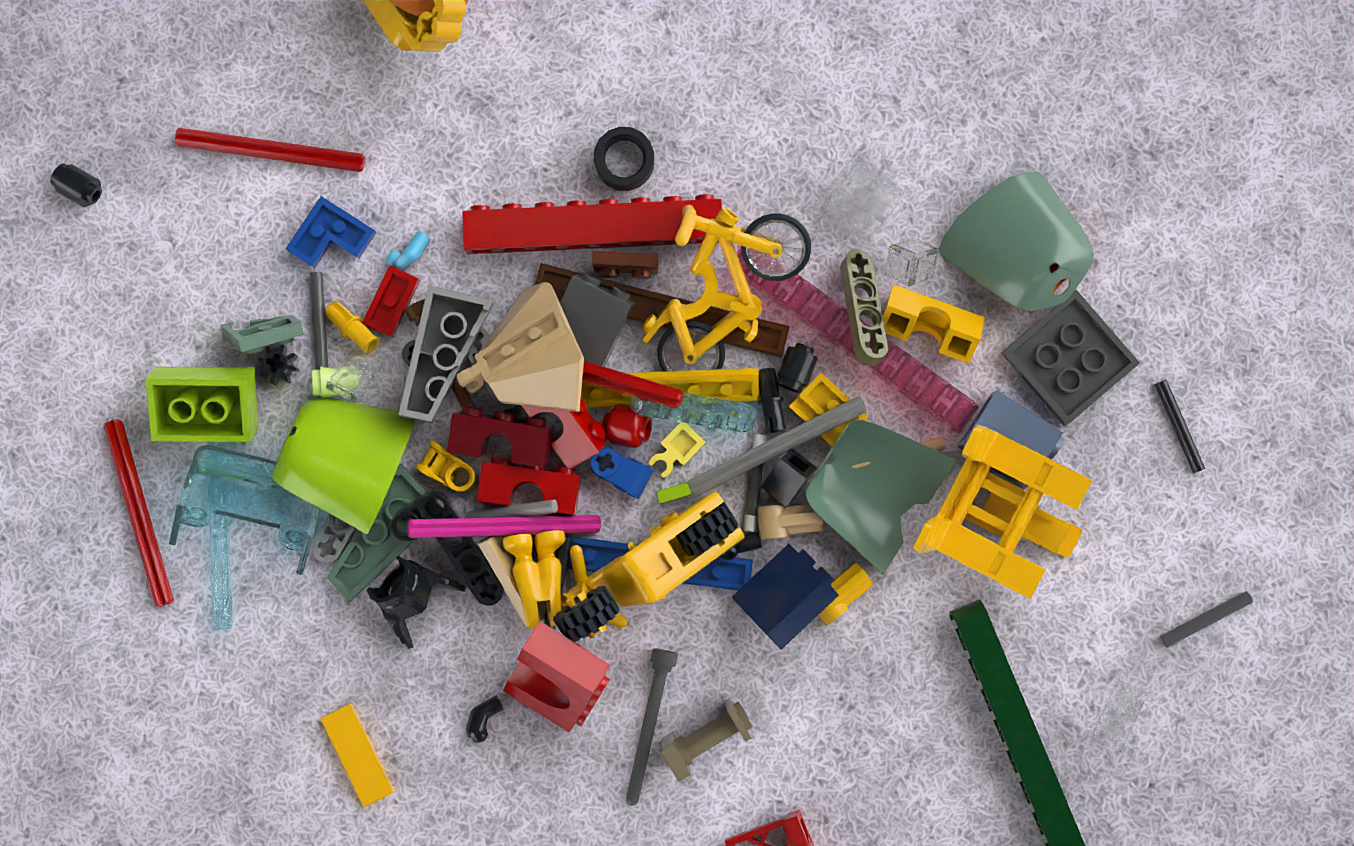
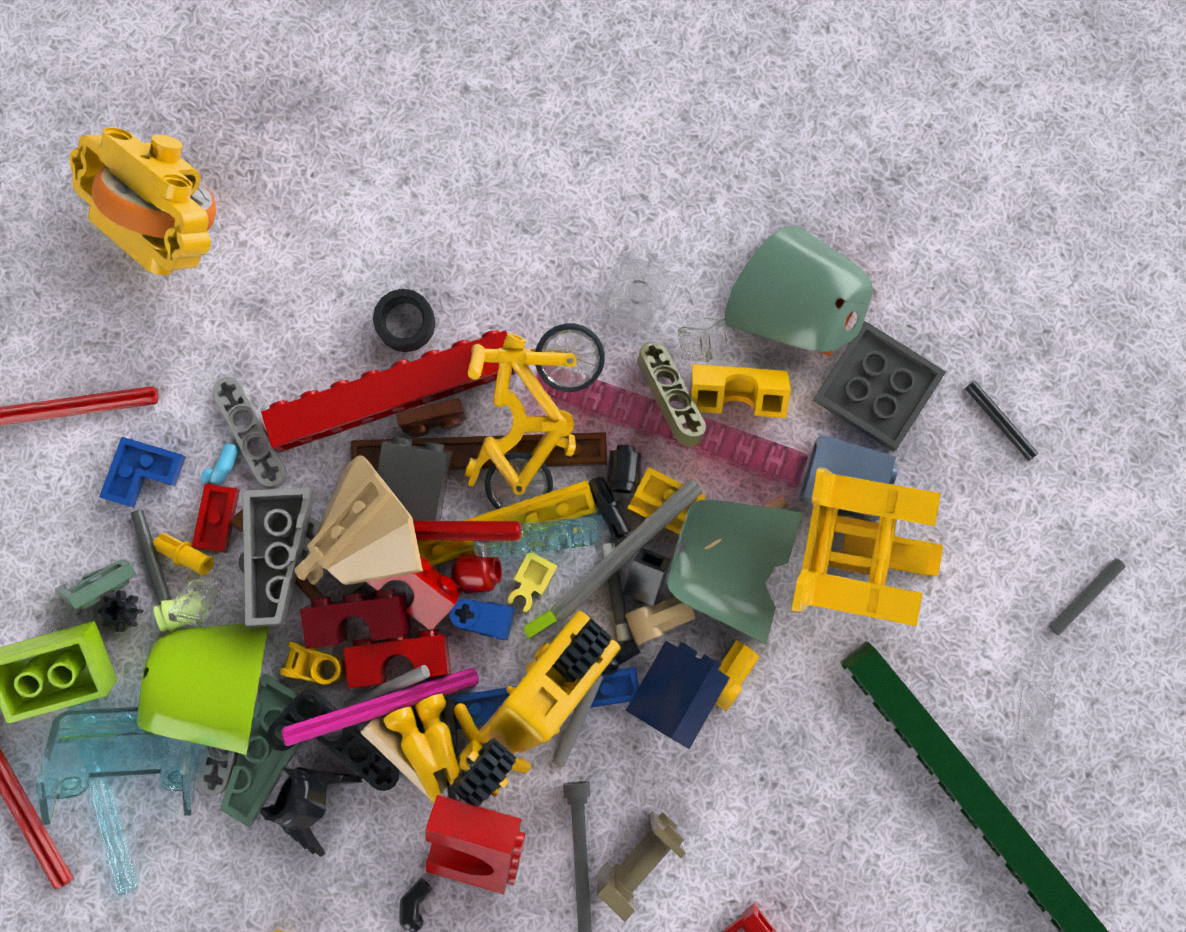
camera: 15 degrees left, 5 degrees down
(439, 228) = (247, 434): none -> light grey beam
(680, 597) = (576, 724): none -> light grey bar

